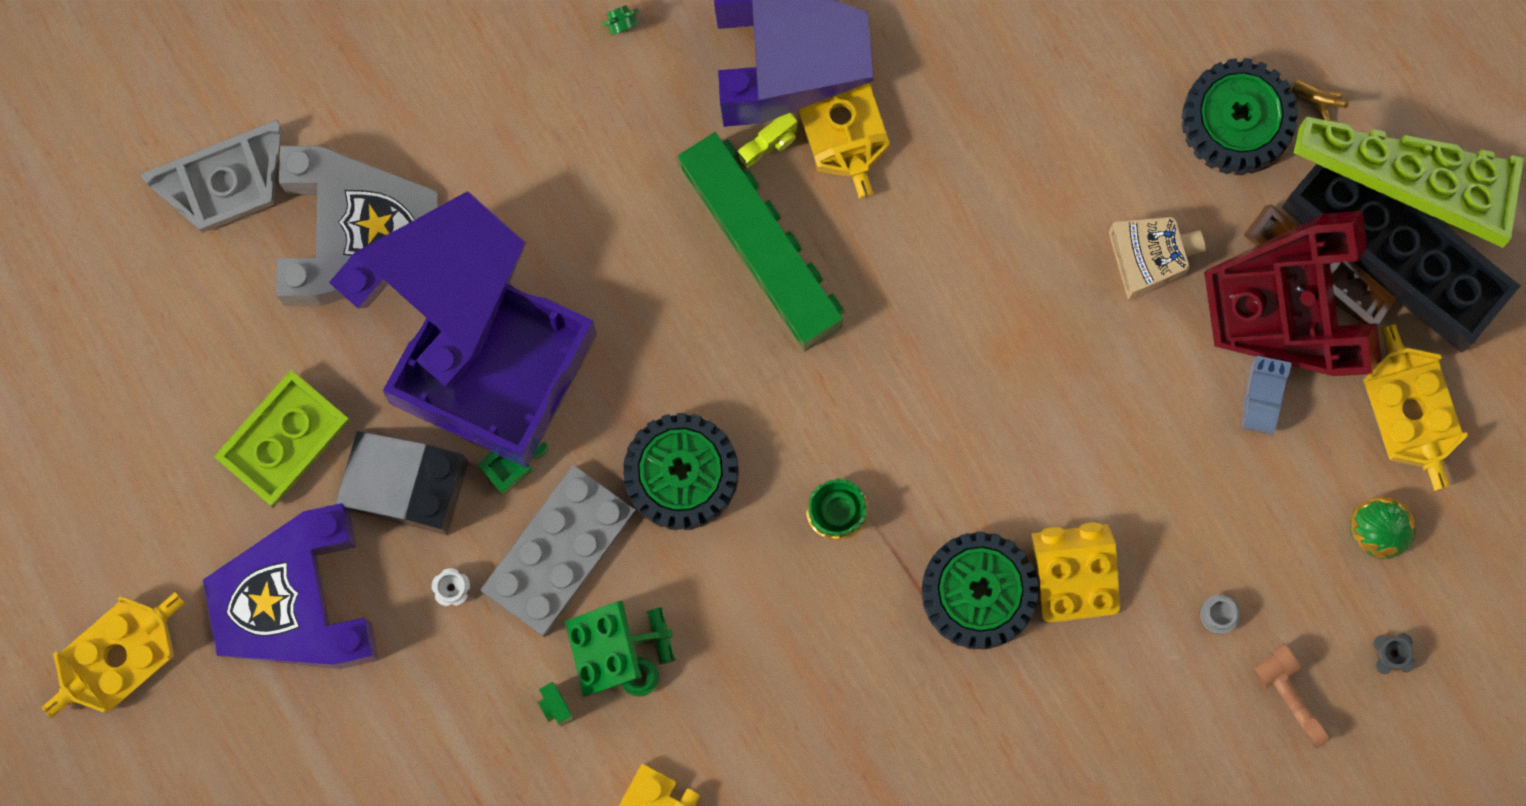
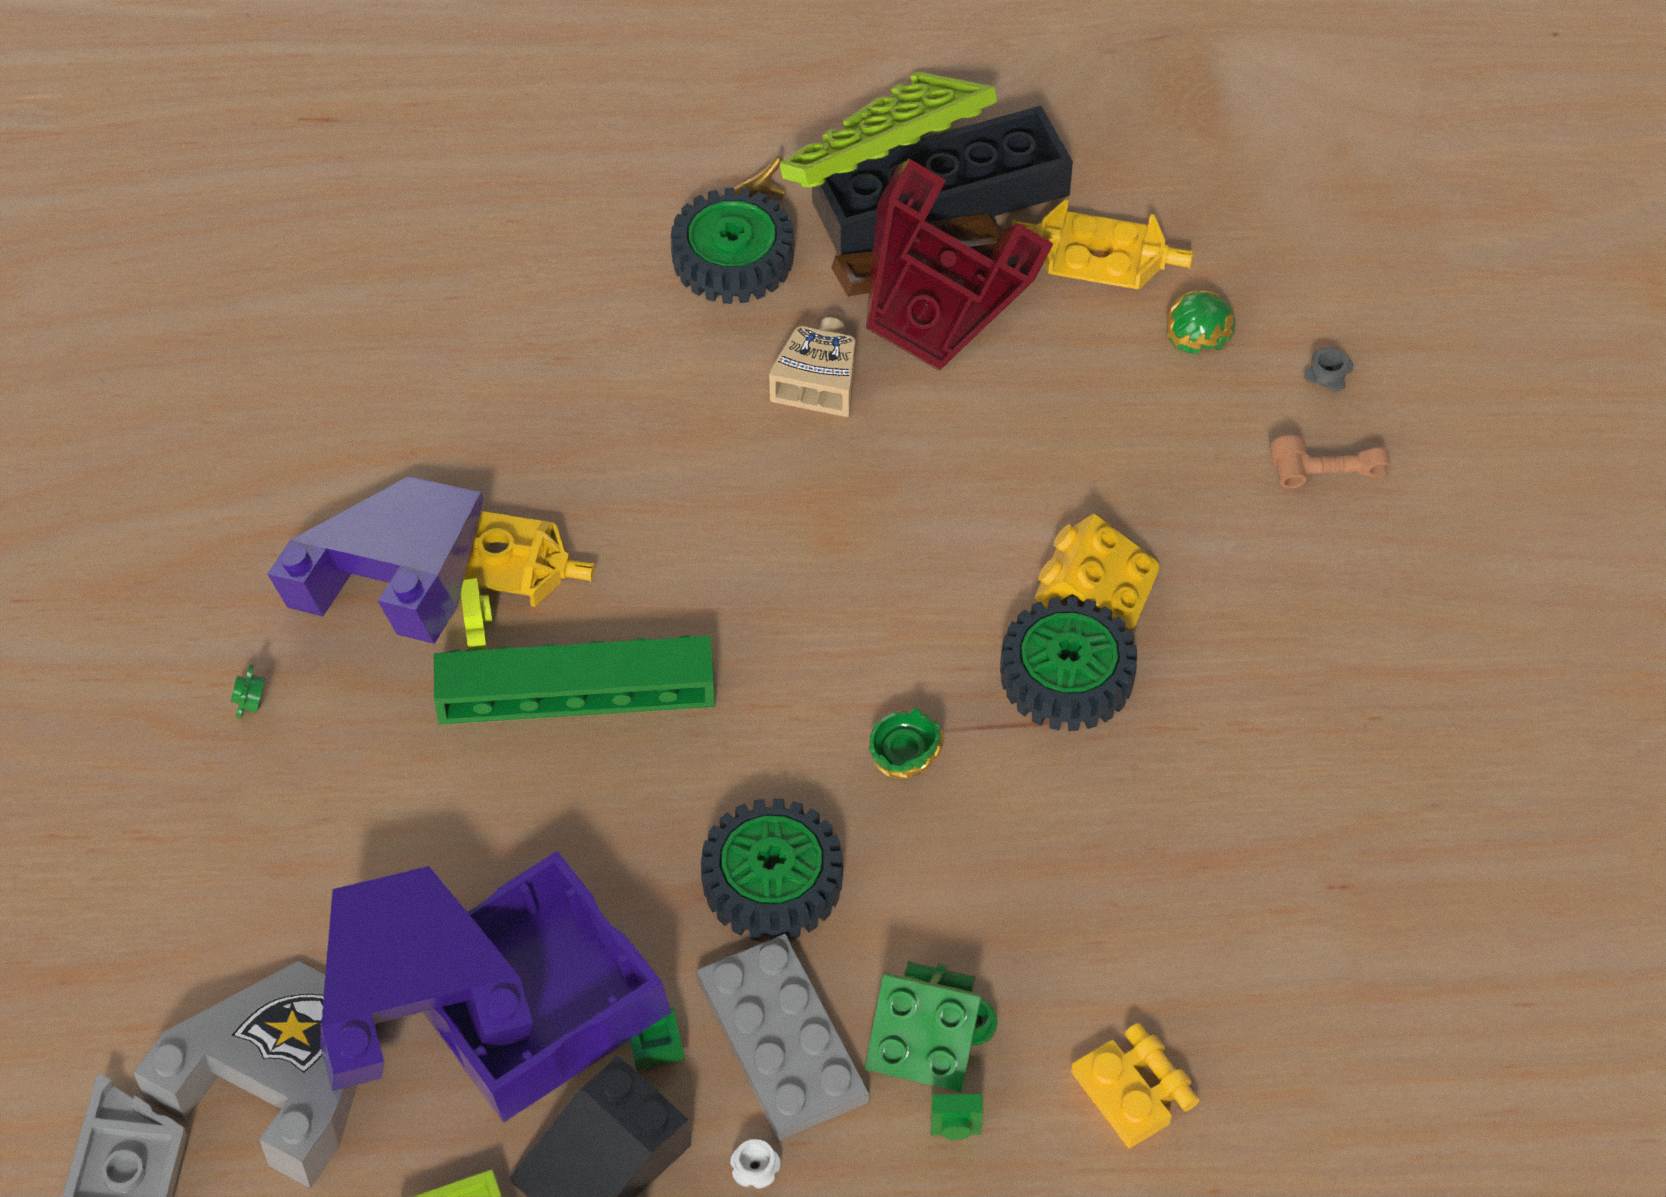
camera: 65 degrees left, 25 degrees down
(1220, 614) = (1211, 482): light grey plate -> none
(1264, 394) = (1014, 348): sand blue leg -> none

